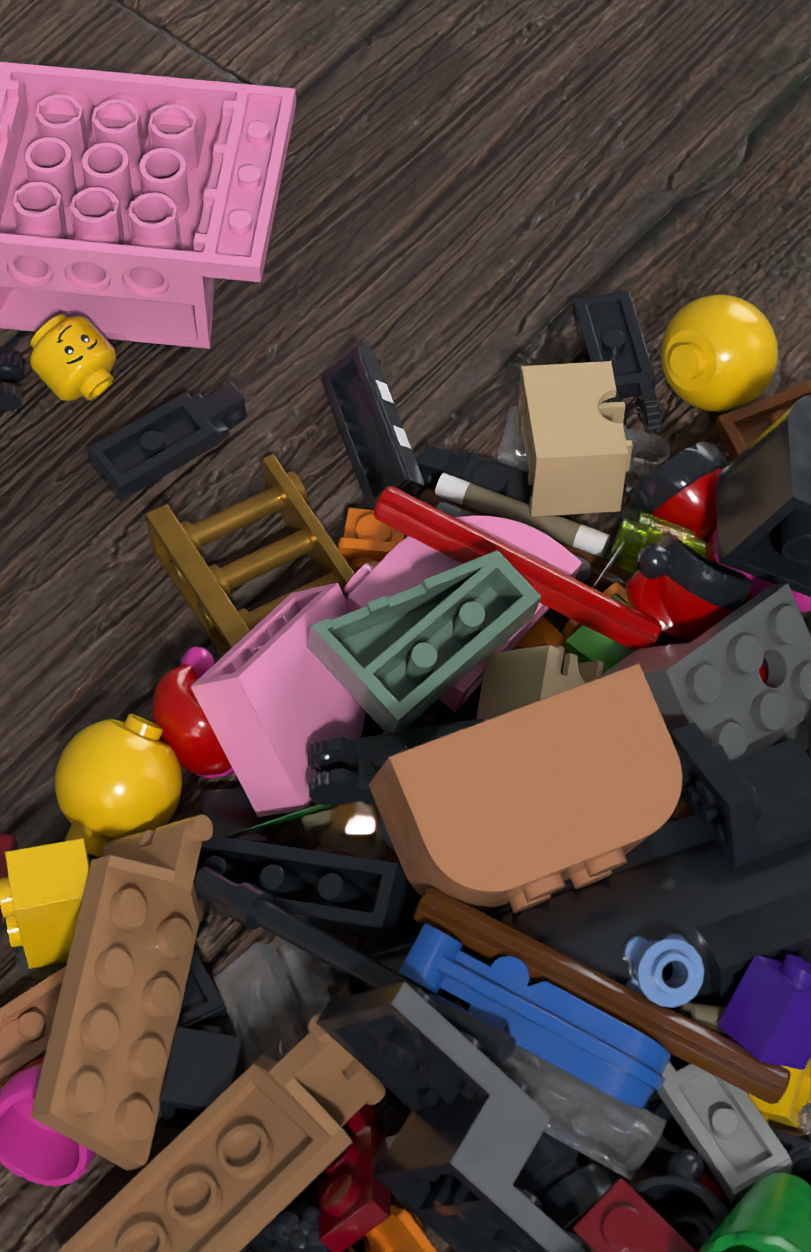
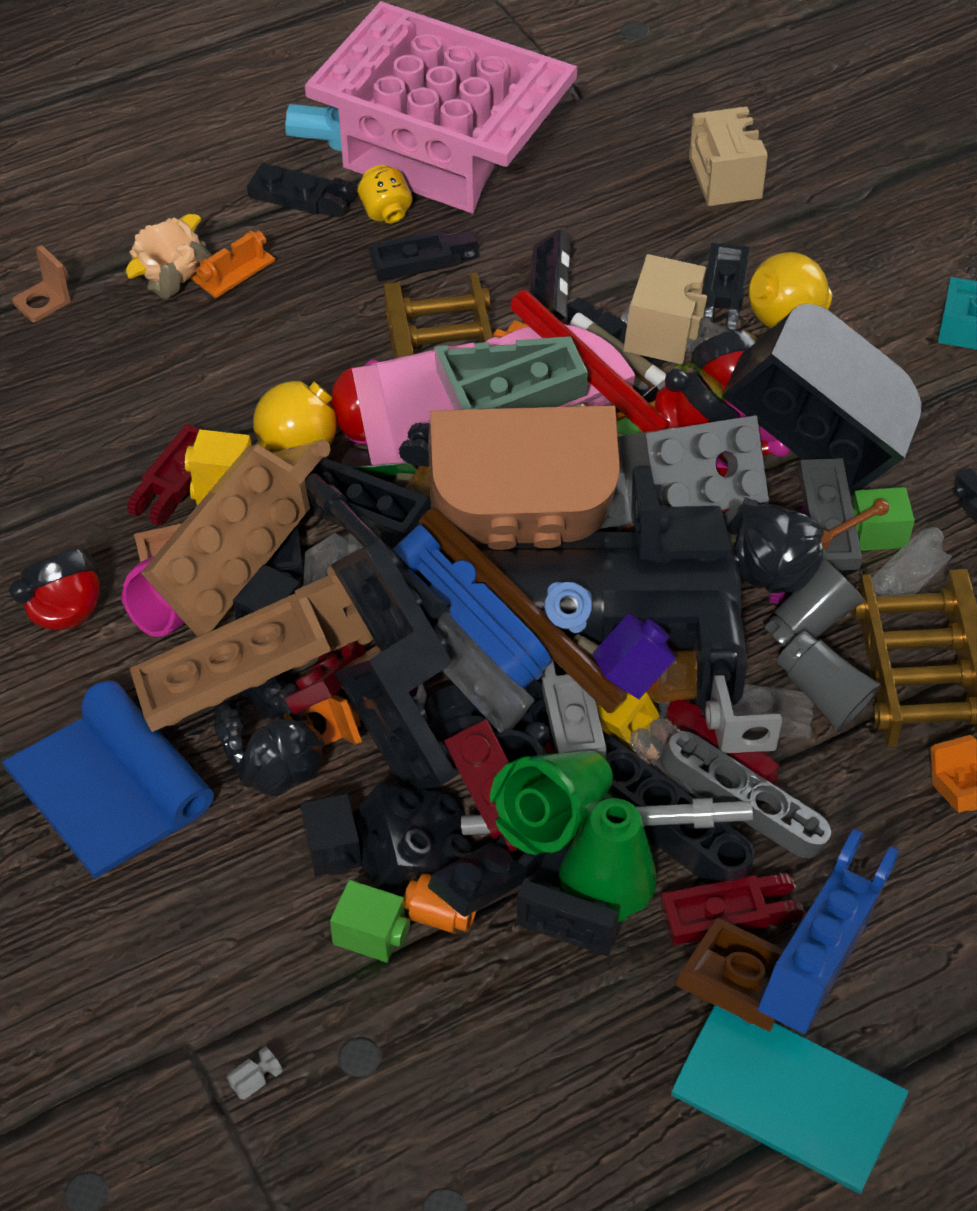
camera: 20 degrees right, 5 degrees down
(537, 156) = (727, 157): none -> tan piece

